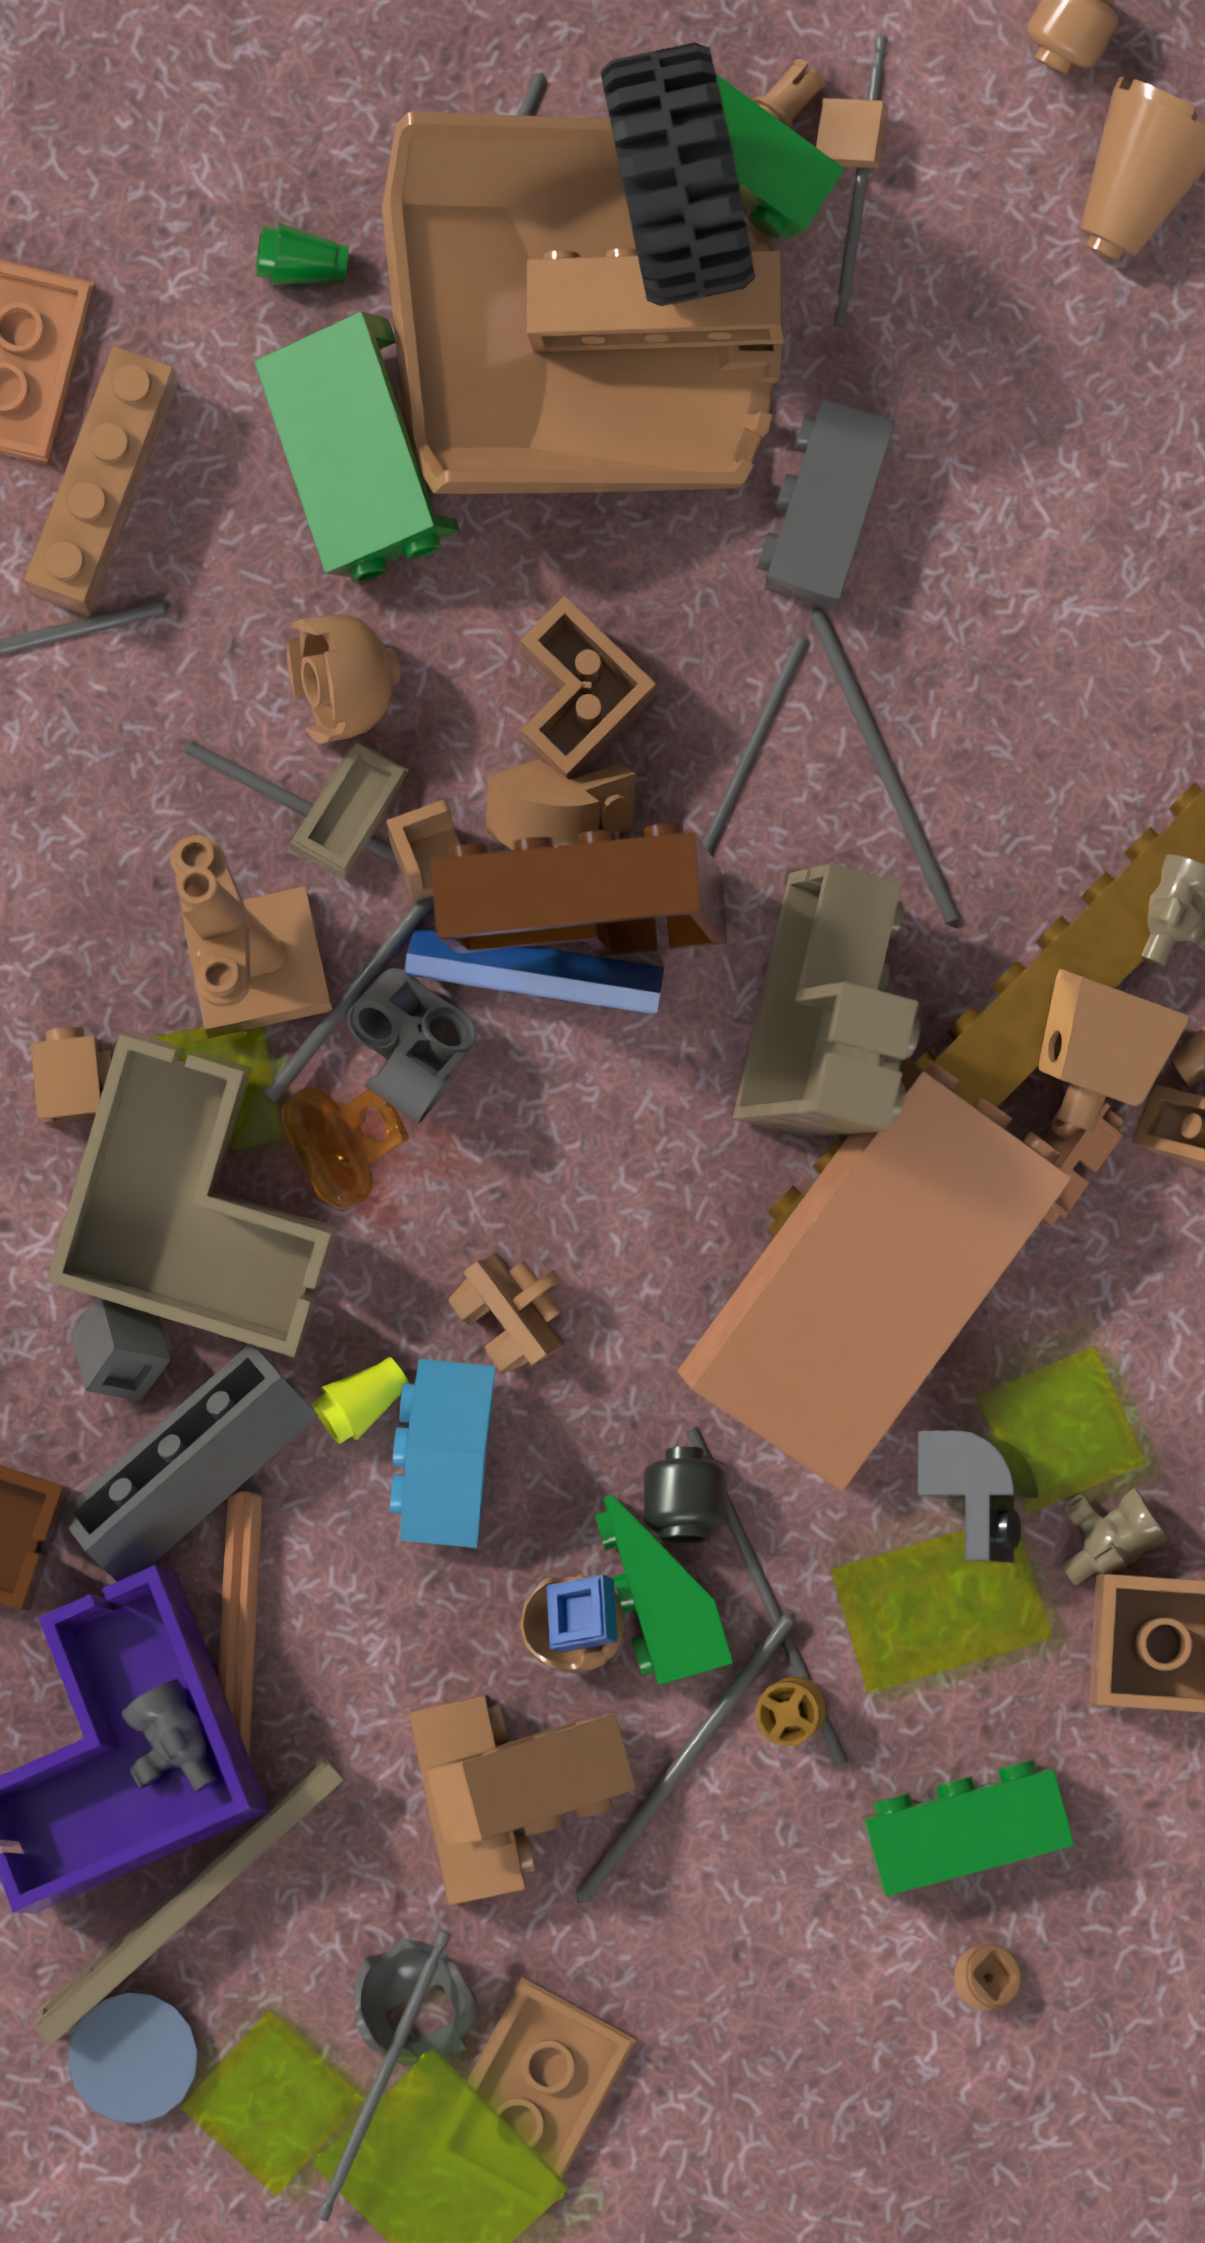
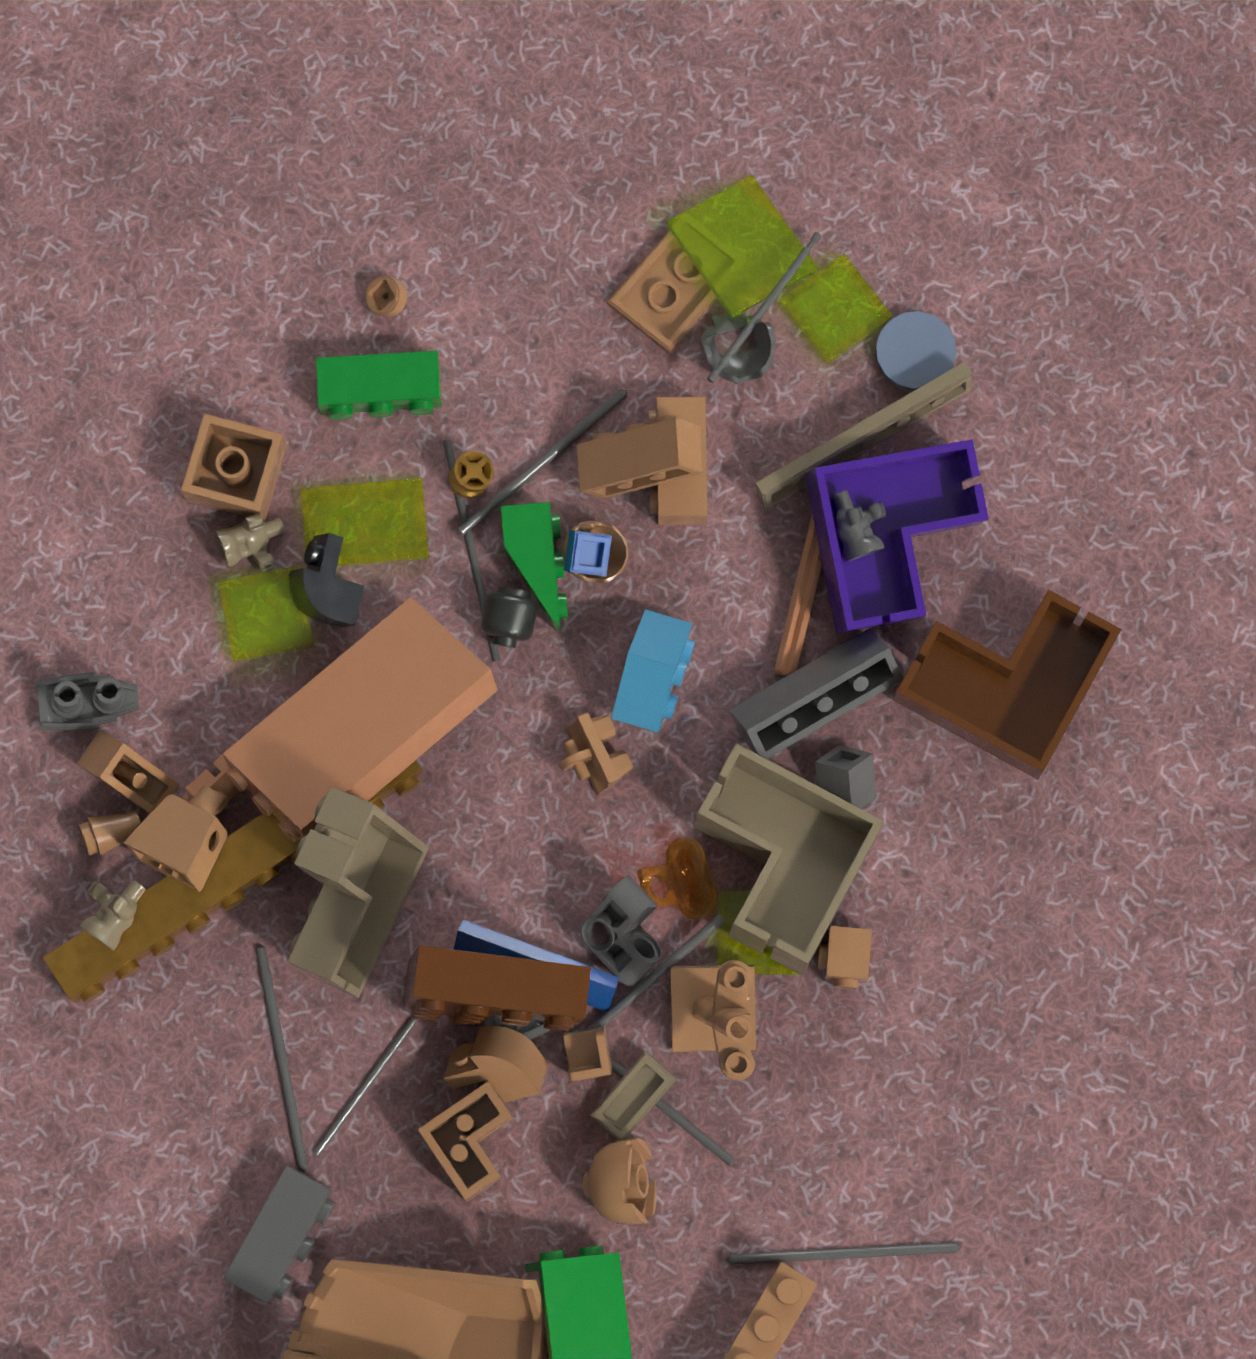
camera: 165 degrees left, 5 degrees down
(359, 1399) = (701, 717): neon yellow cone -> none

